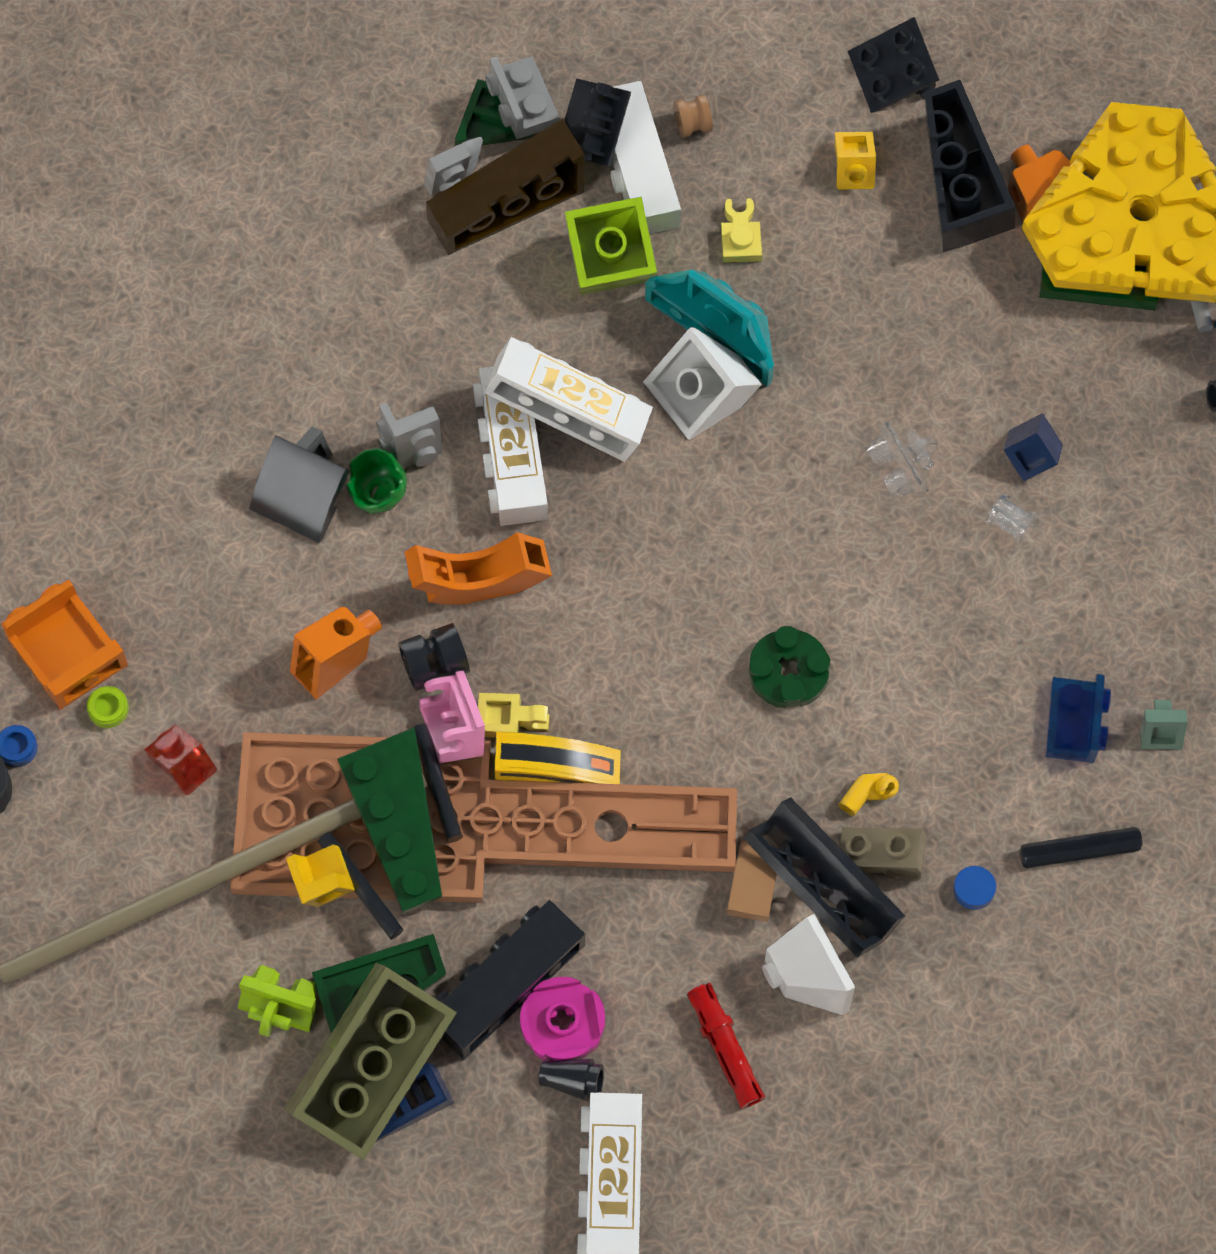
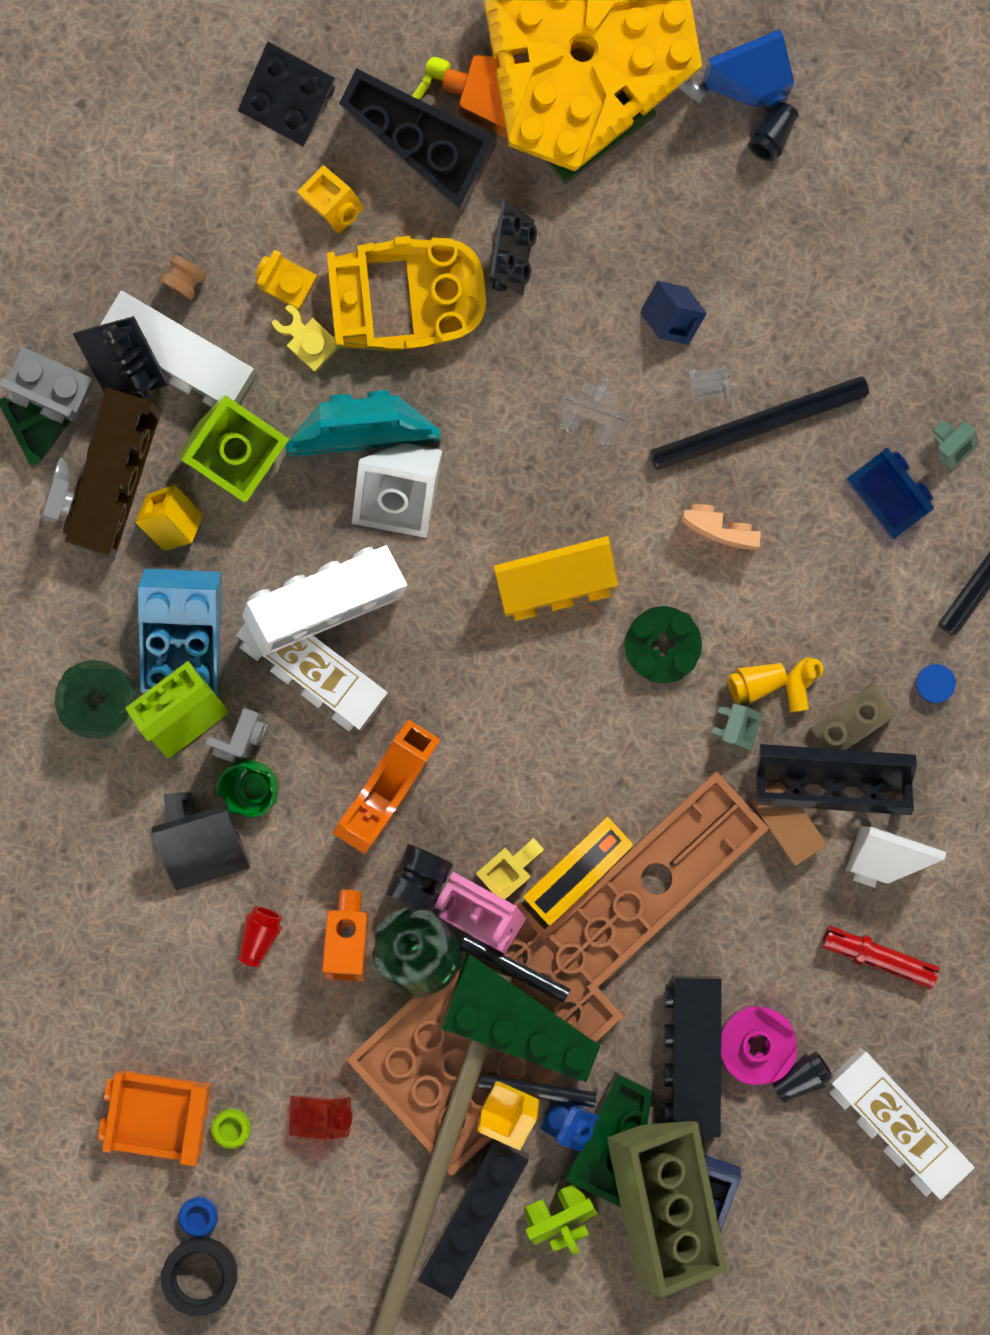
camera: 40 degrees left, 20 degrees up
(215, 933) = (472, 1218): none -> black brick
(274, 590) = (259, 934): none -> red cone
(334, 326) = (74, 694): none -> clear green brick
(359, 935) = (569, 1124): none -> blue bracket
(375, 698) = (416, 952): none -> clear green brick
(380, 376) = (177, 710): none -> lime bracket
(441, 338) = (179, 624): none -> dark azure slope
(515, 259) = (169, 518): none -> yellow panel
(756, 539) = (556, 578): none -> yellow slope
(765, 180) = (285, 280): none -> yellow bracket
(789, 775) = (741, 726): none -> sand green tile
(833, 756) = (755, 682): none -> yellow cone
(872, 289) = (443, 292): none -> yellow slope
(912, 613) = (709, 524): none -> light nougat slope
(953, 295) = (512, 249): none -> black hinge
(1015, 140) = (435, 70): none -> neon yellow hand
(1023, 581) = (759, 423): none -> black axle

